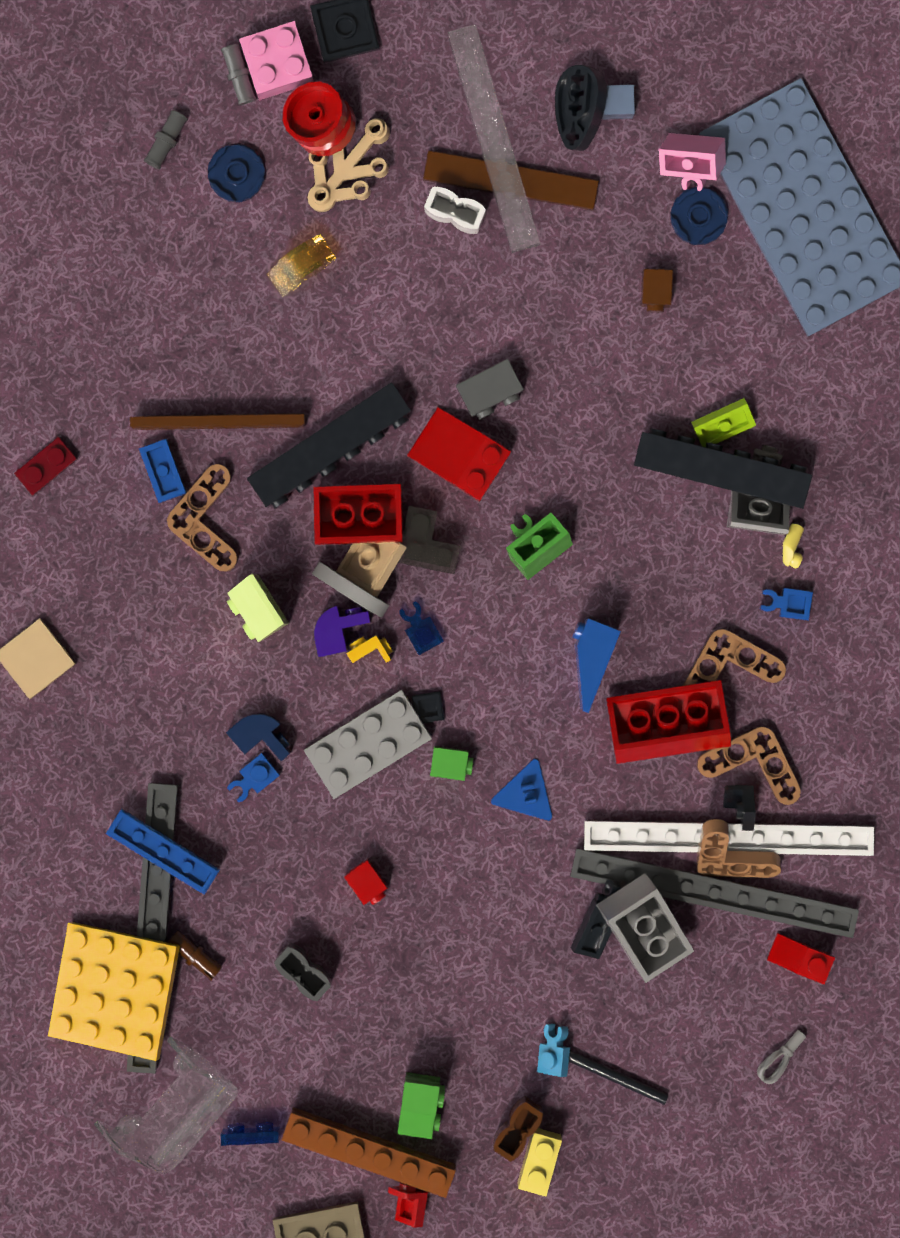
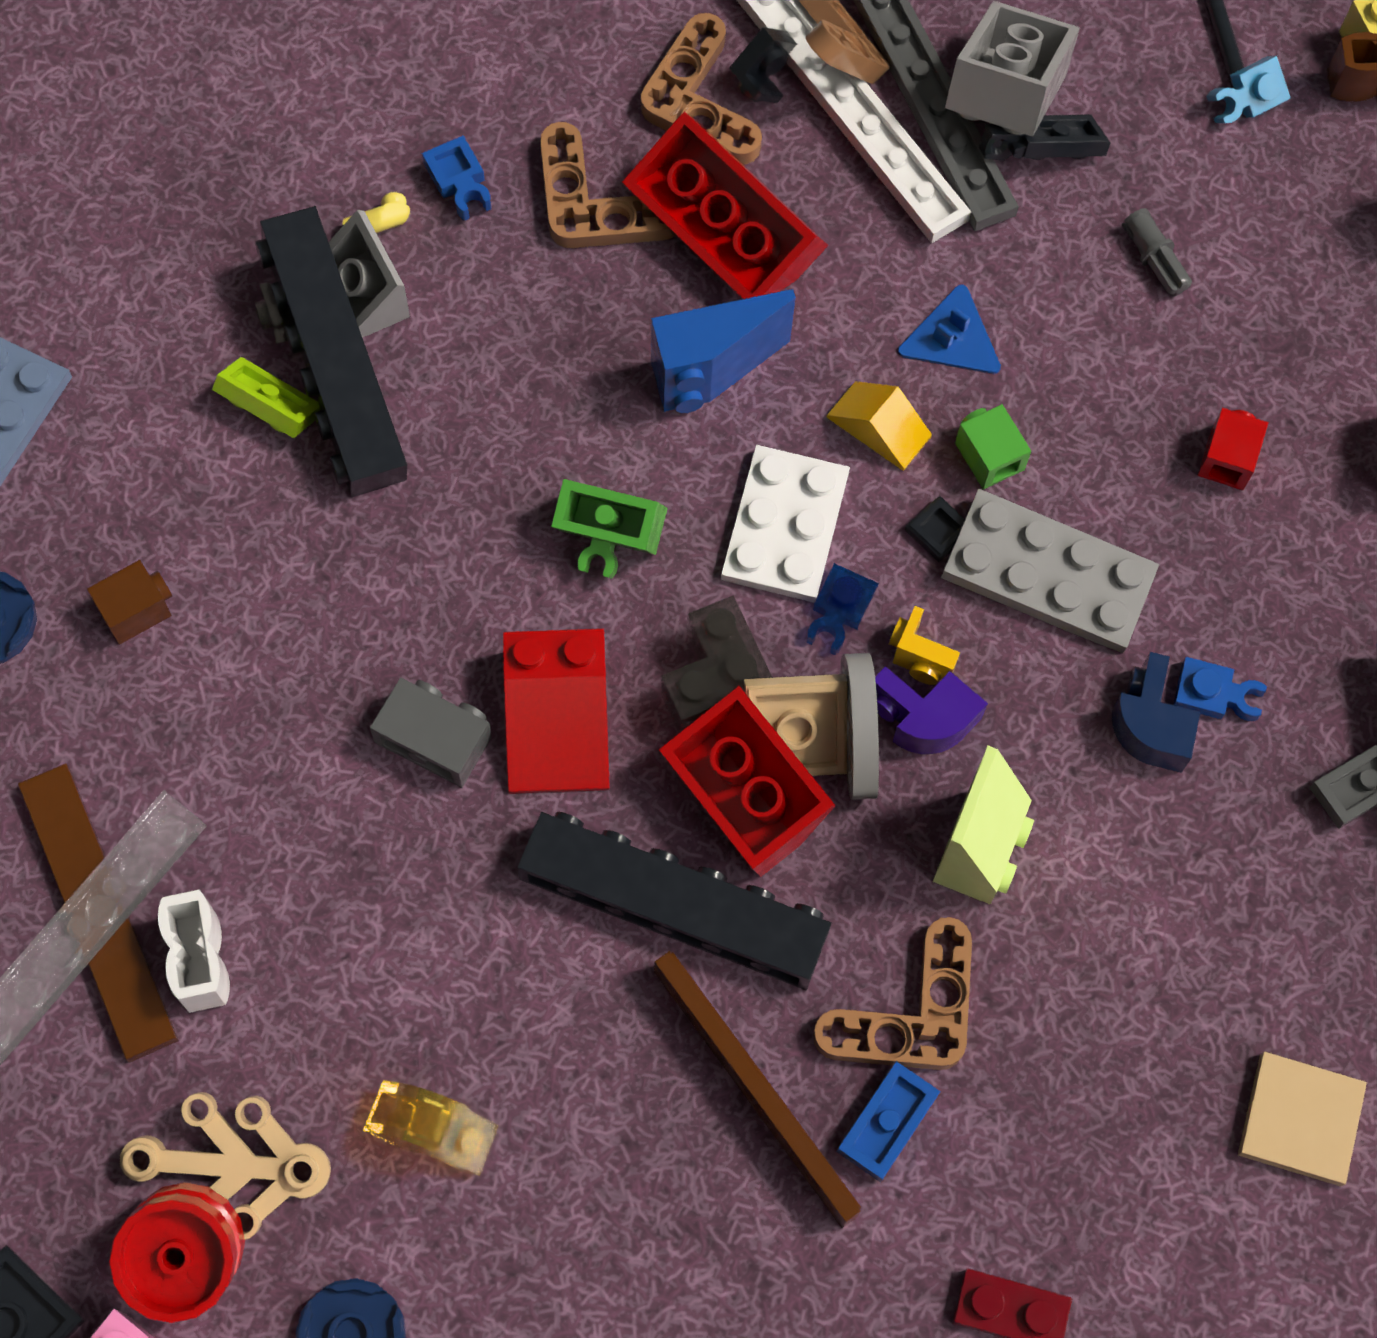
camera: 130 degrees left, 20 degrees down
(482, 634) = (785, 523): none -> white plate
(497, 931) = (1157, 252): none -> dark grey axle
(503, 719) = (882, 421): none -> yellow slope

